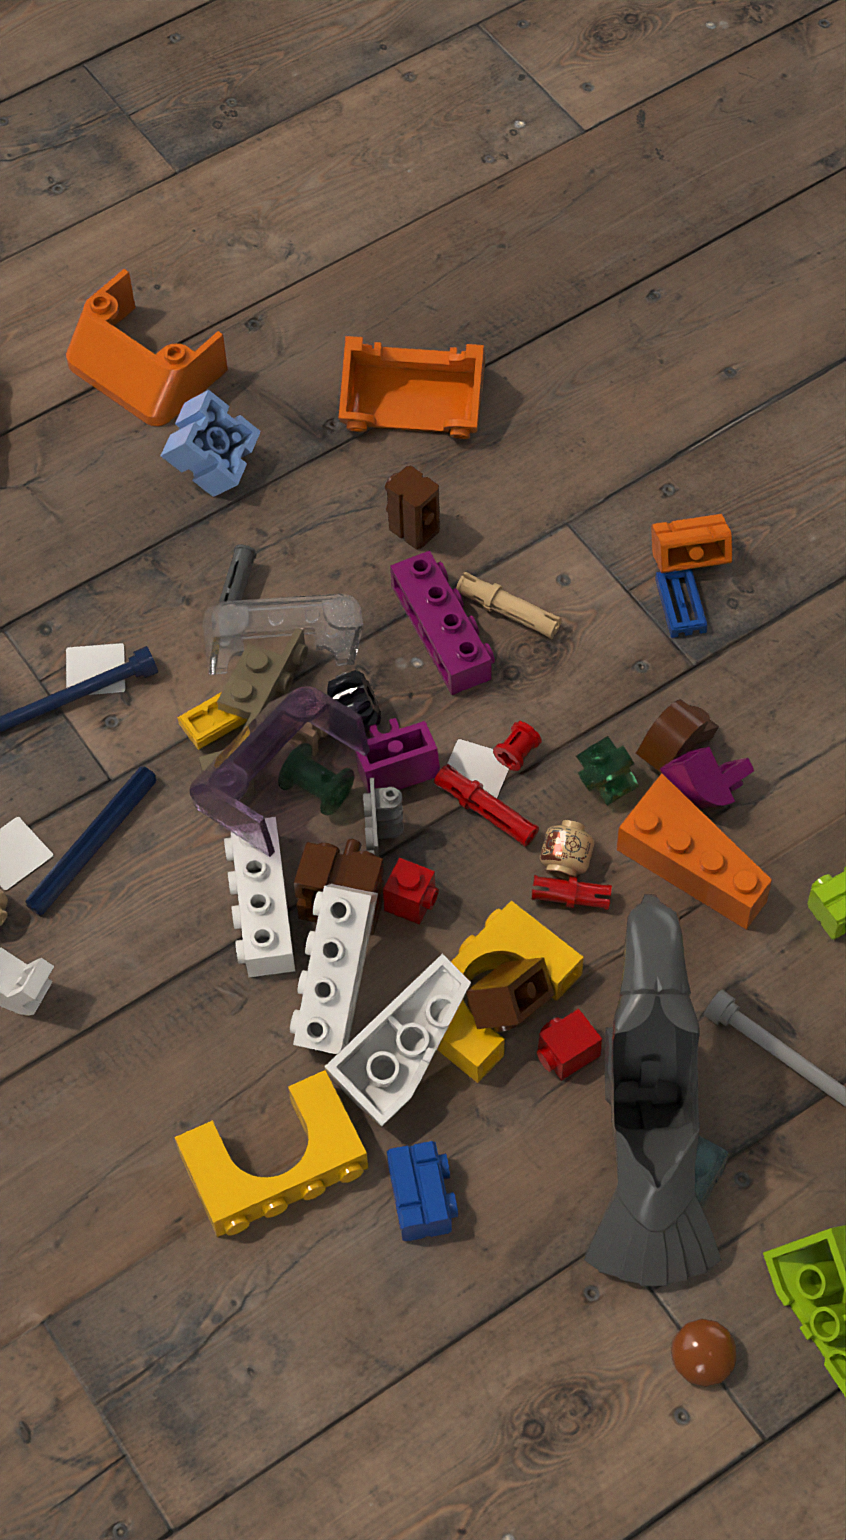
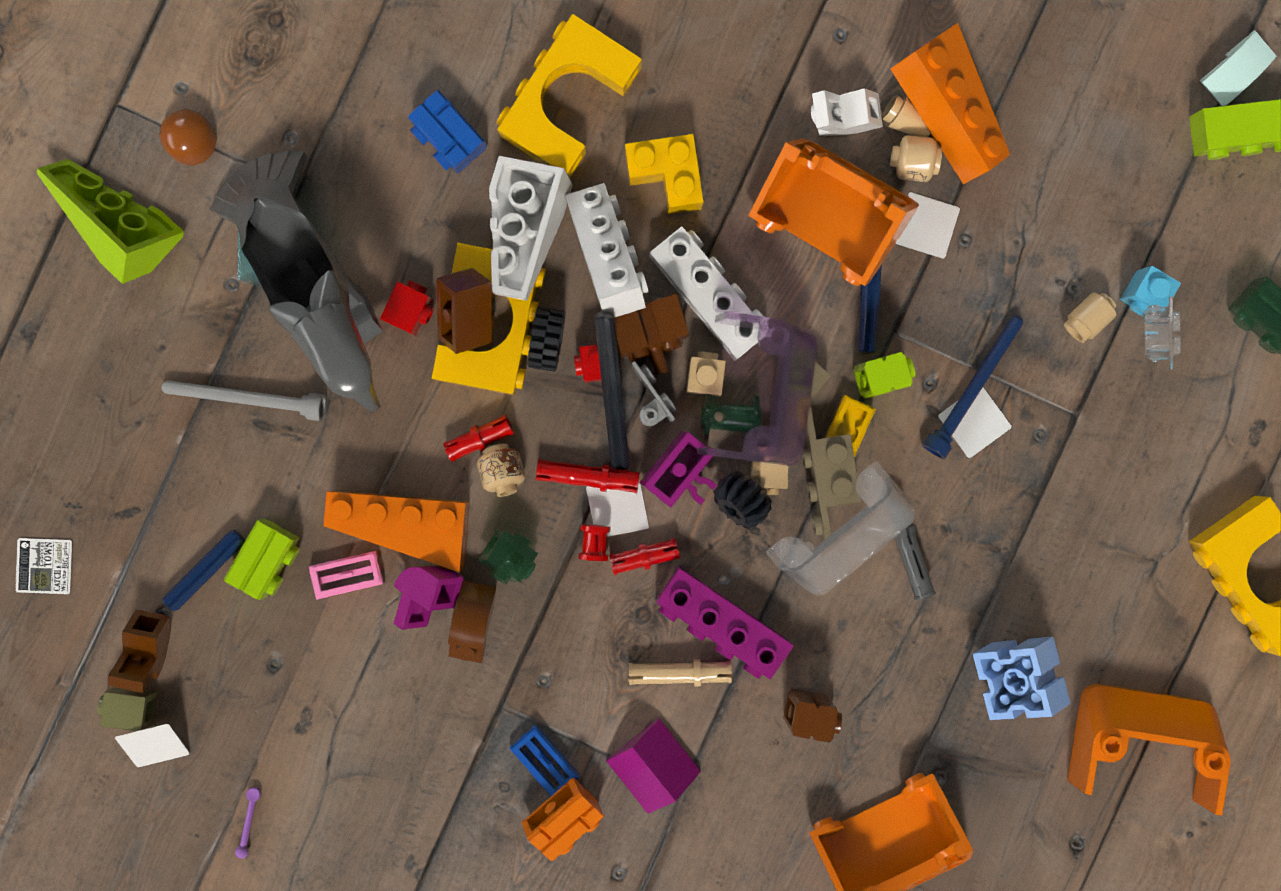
camera: 150 degrees right, 30 degrees up
(84, 894) = (833, 208): none -> orange windscreen
(151, 732) = (884, 375): none -> lime brick
(214, 1026) = (668, 161): none -> yellow brick
(315, 822) = (705, 374): none -> tan brick
(412, 844) = (612, 390): none -> black axle
(445, 930) = (546, 339): none -> black tyre
(477, 712) = (644, 556): none -> red pin
(581, 546) = (654, 767): none -> magenta slope
(778, 852) = (375, 567): none -> bright pink tile

